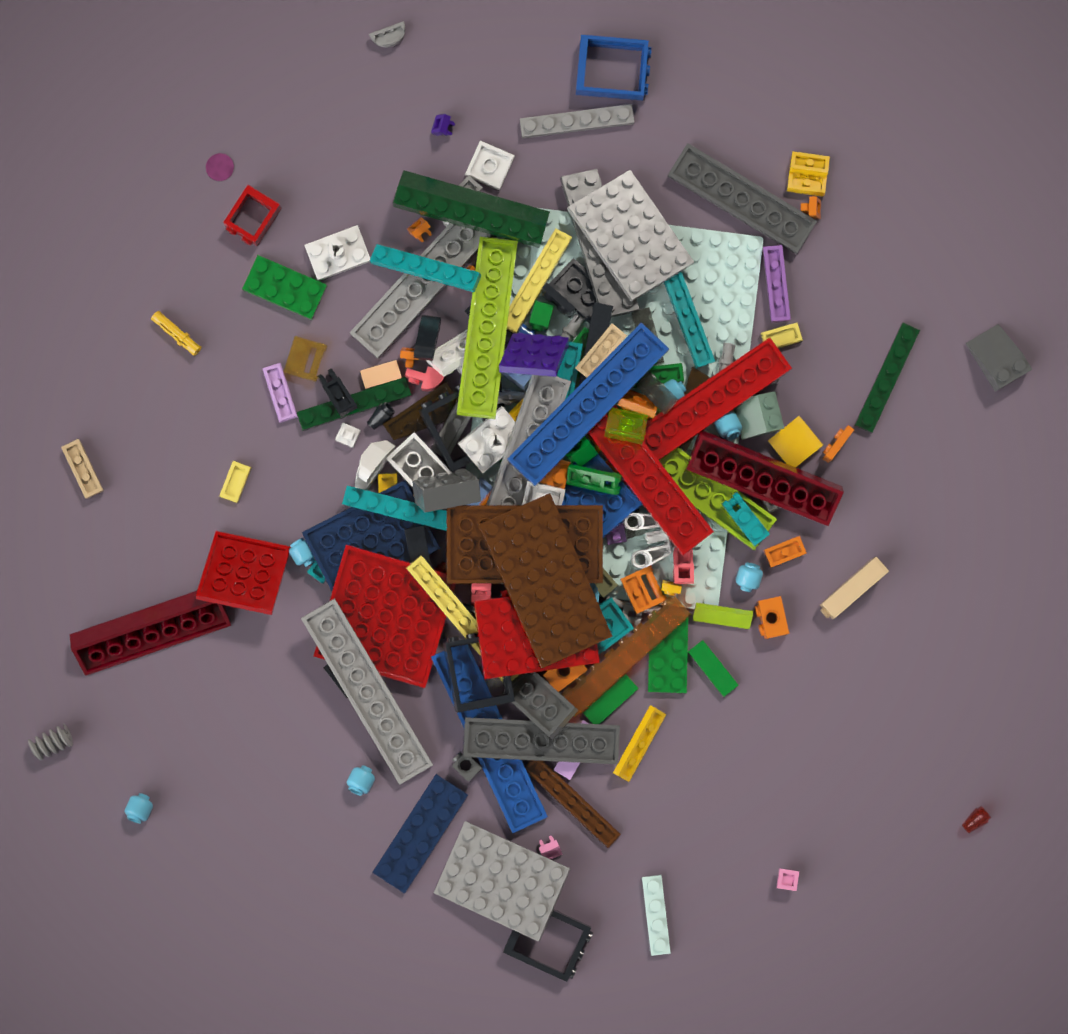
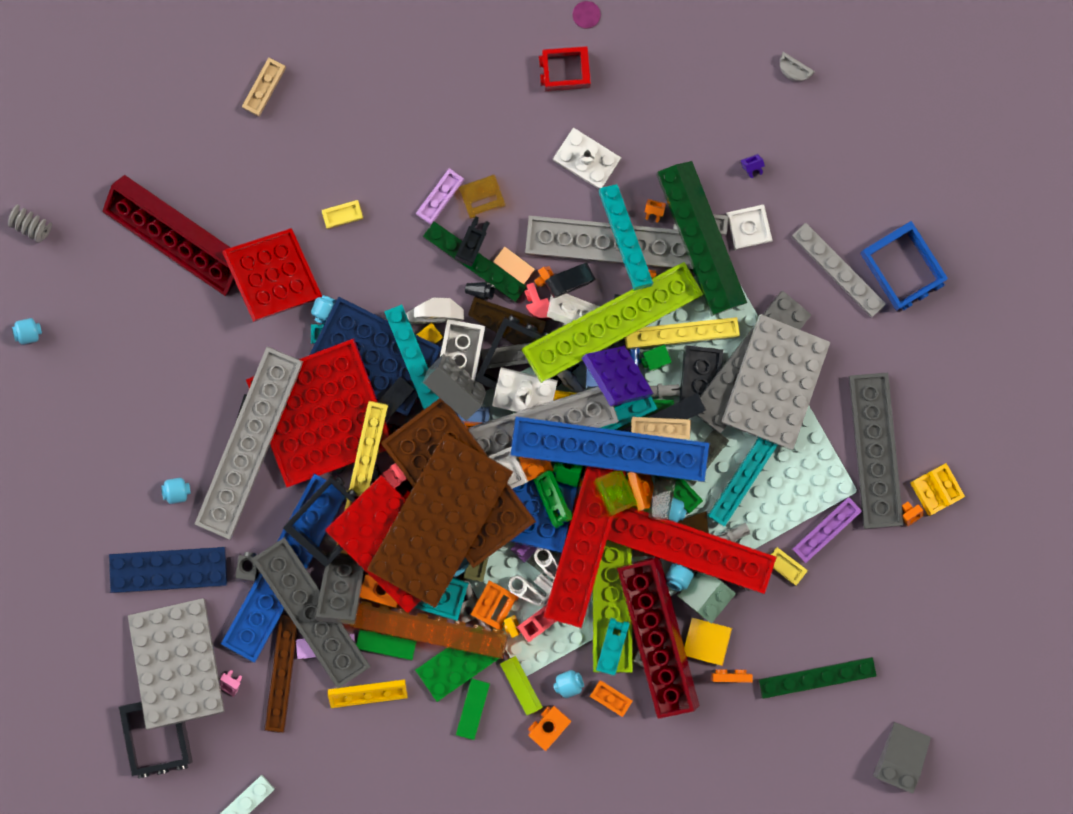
camera: 55 degrees right, 0 degrees up
(183, 339) = (426, 80): yellow pin -> none
(284, 287) = (527, 137): green plate -> none
(348, 435) = (445, 275): white tile -> none
(558, 300) = (677, 370): black plate -> none
(853, 588) = (622, 776): tan slope -> none

